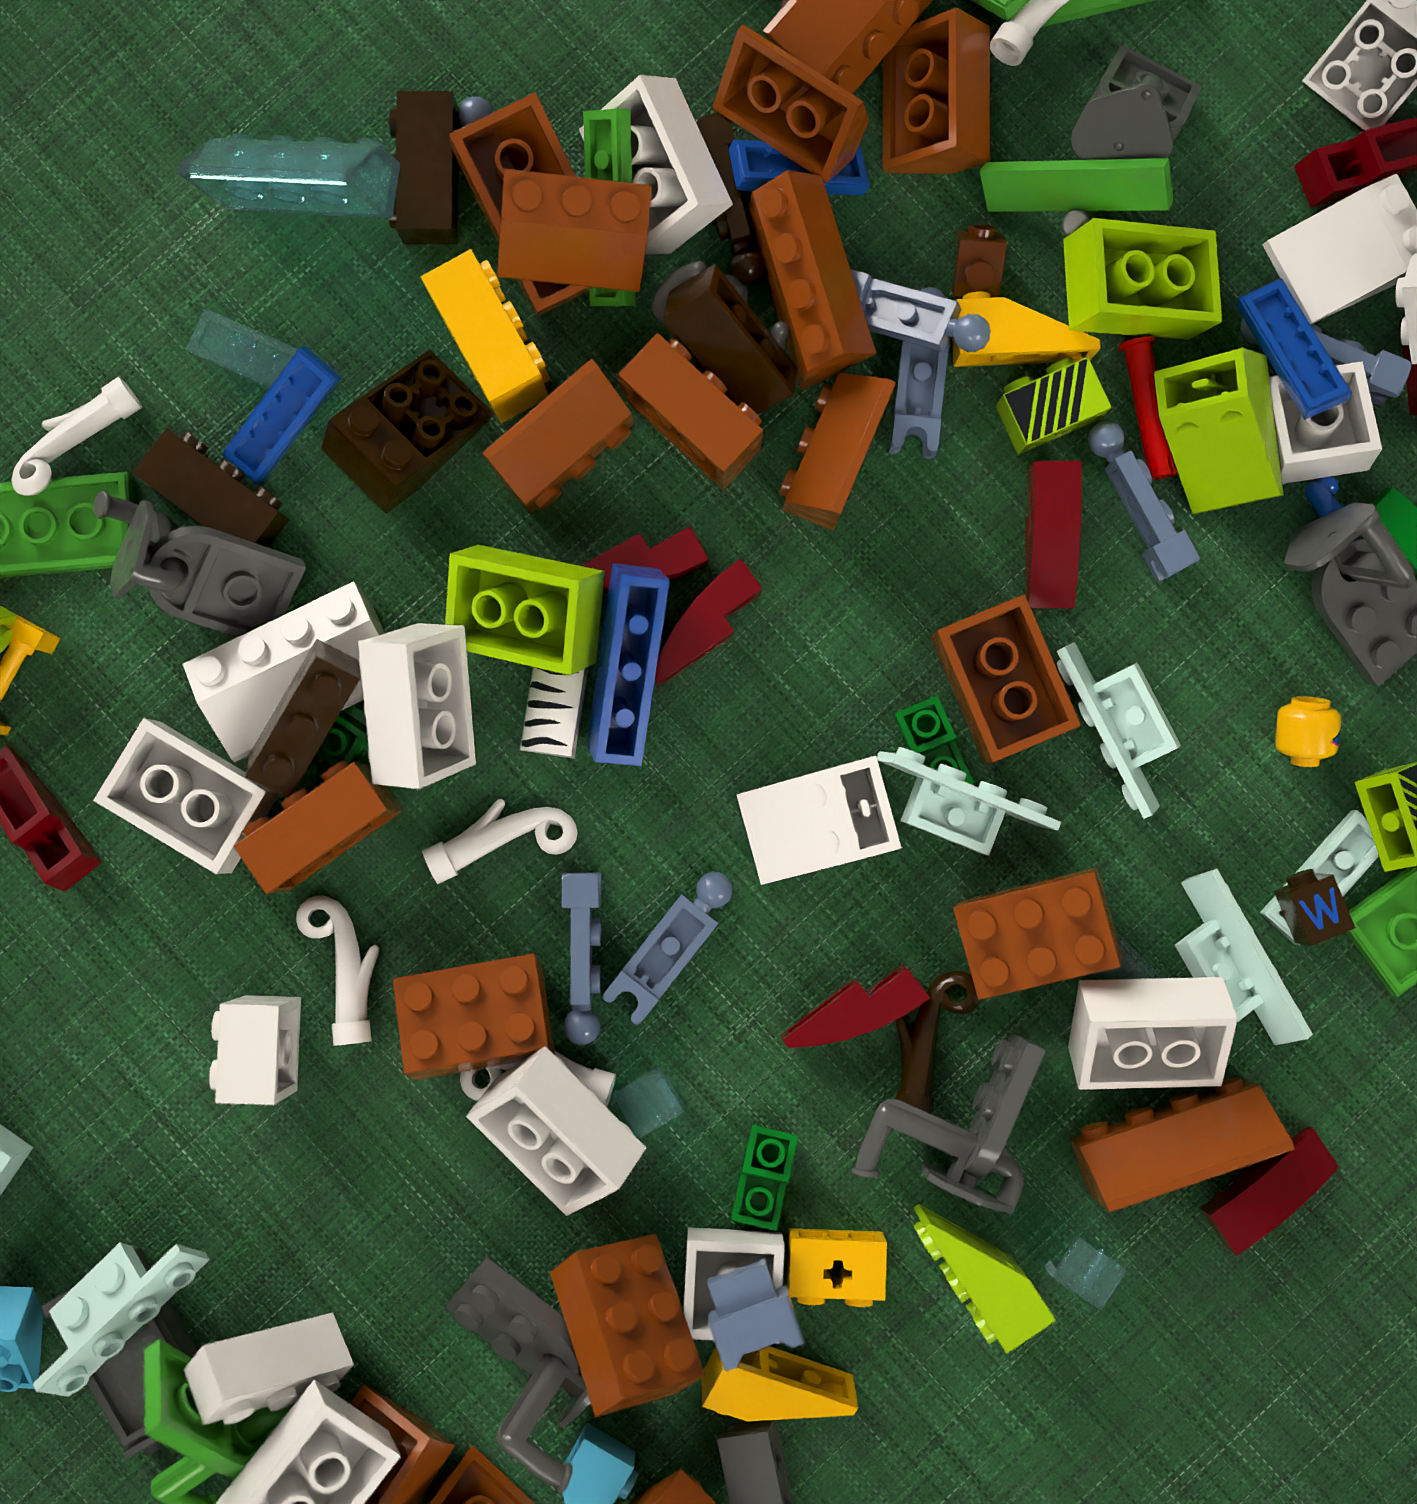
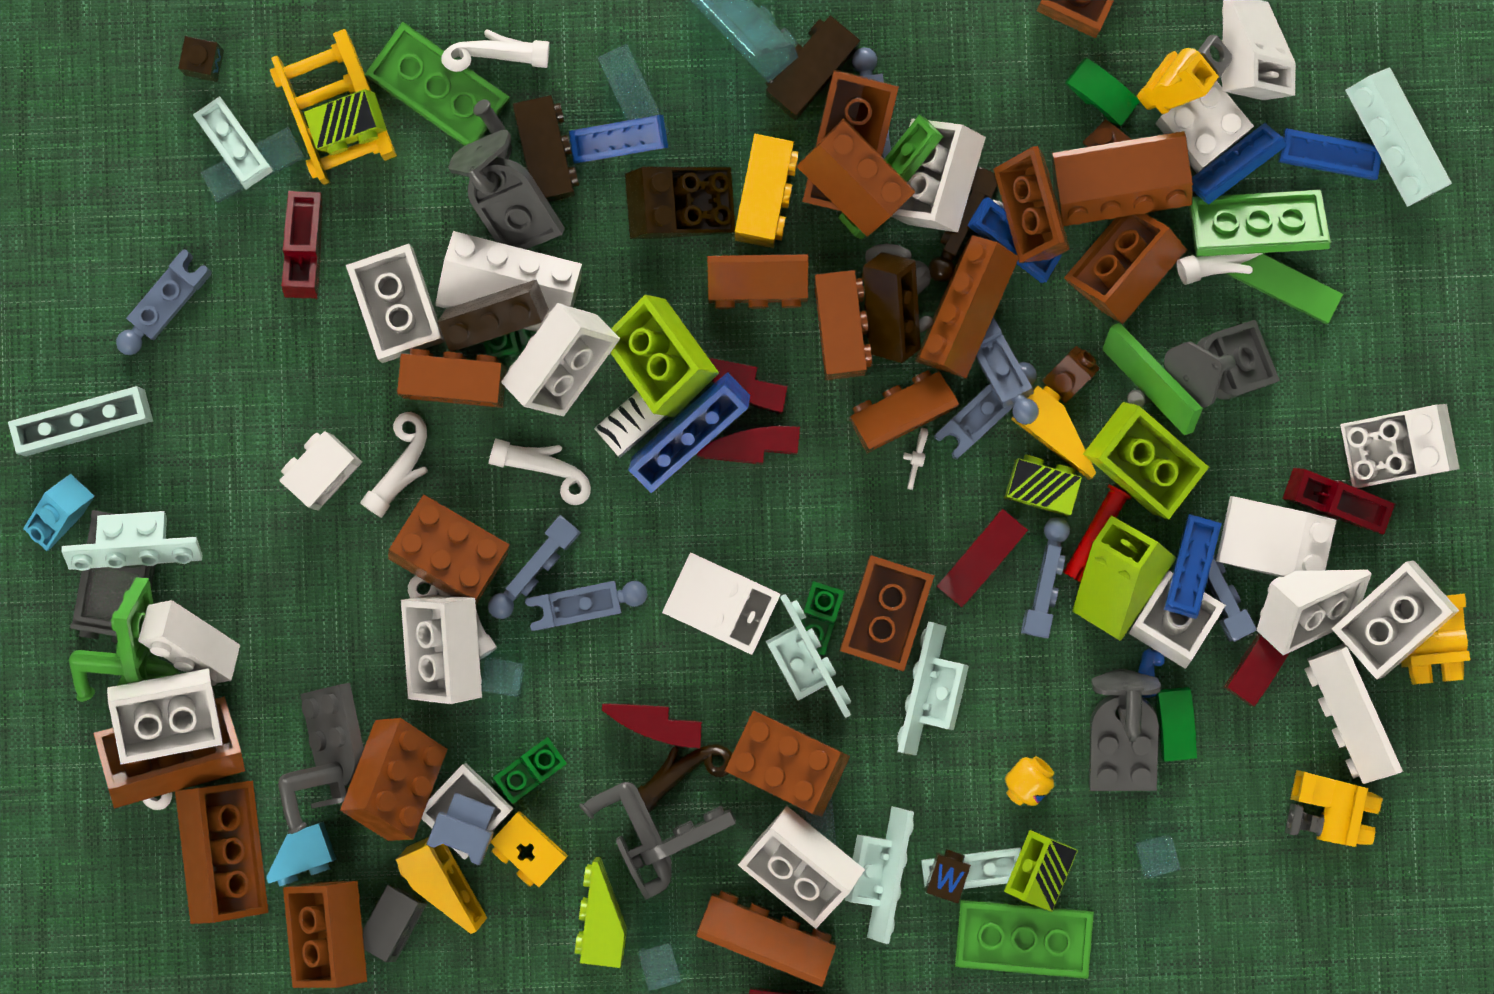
camera: 45 degrees right, 0 degrees up
(891, 489) = (917, 457): none -> white piece

